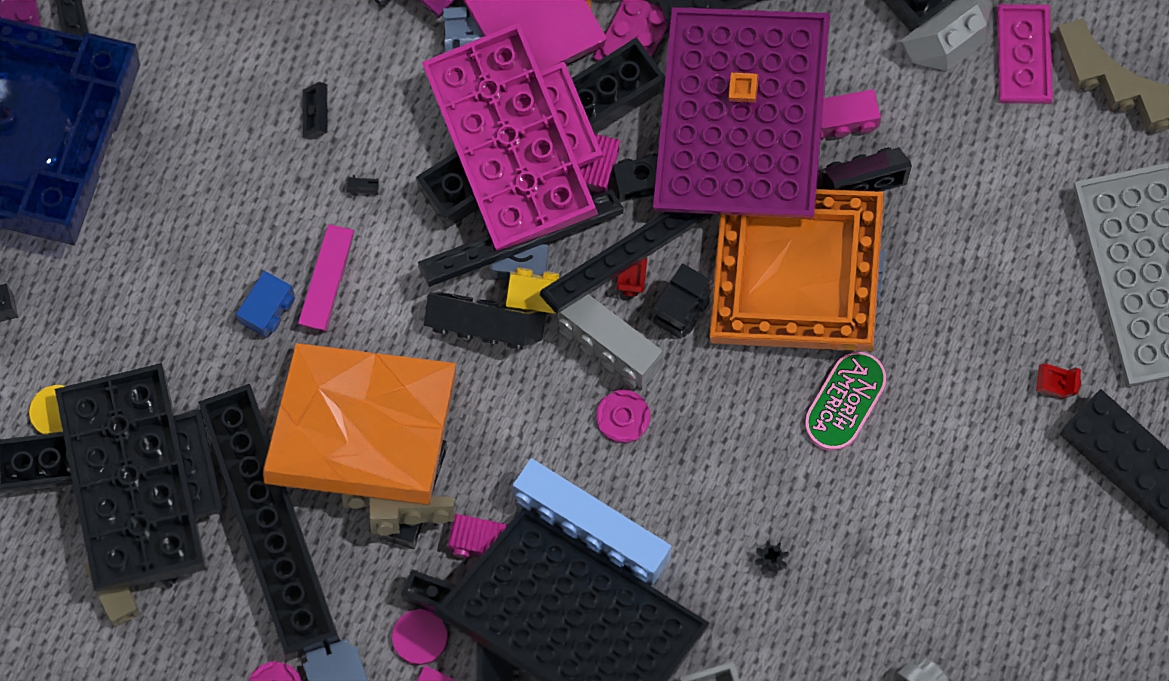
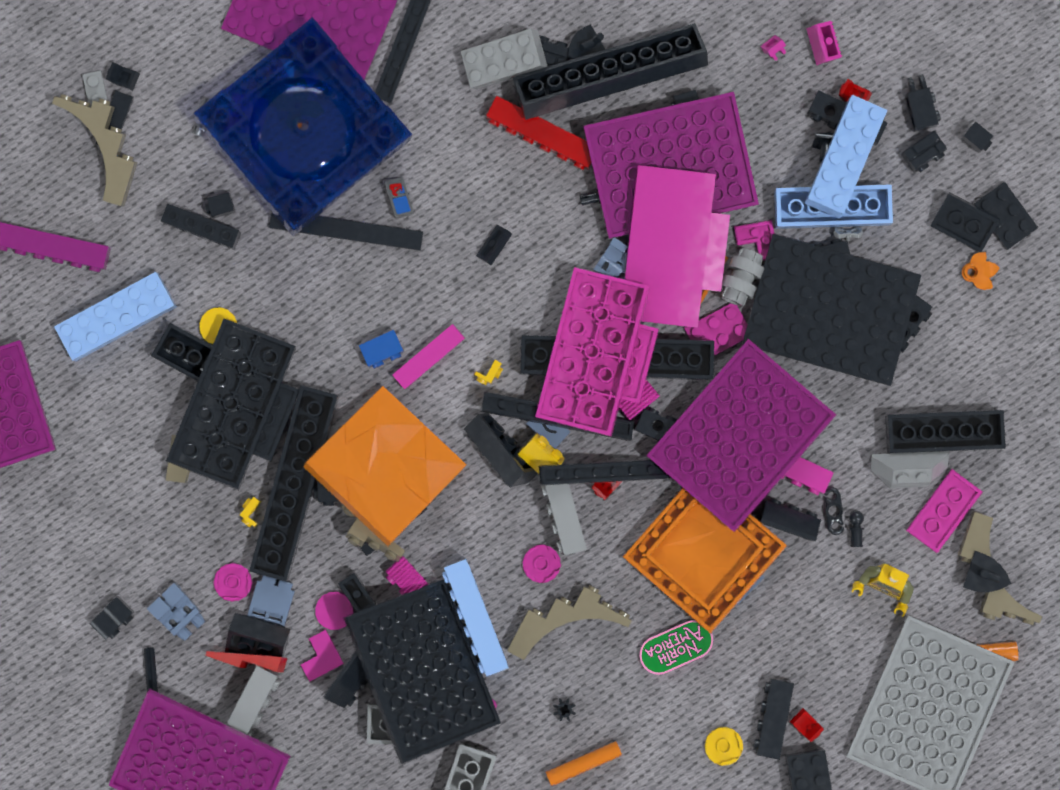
camera: 35 degrees right, 15 degrees up
(140, 206) = (358, 232): none -> black tile
(170, 135) = (399, 197): none -> slope
(235, 587) = (249, 507): none -> yellow bracket
(314, 507) = (324, 495): none -> black brick
(362, 185) = (489, 312): black pin -> none
(414, 243) = (494, 372): none -> yellow bracket
(682, 301) = (622, 523): black brick -> none
(687, 450) = (586, 607): none -> dark tan arch
(743, 87) = (750, 424): orange plate -> none
(841, 604) = (583, 763): none -> orange brick
(907, 146) = (829, 519): none -> black piece
(936, 125) = (856, 518): none -> black pin
(986, 480) = (720, 740): none -> yellow tile
(1017, 399) = (774, 718): none -> black brick
(1024, 162) = (888, 581): none -> torso
(1123, 81) = (985, 574): none -> black shield

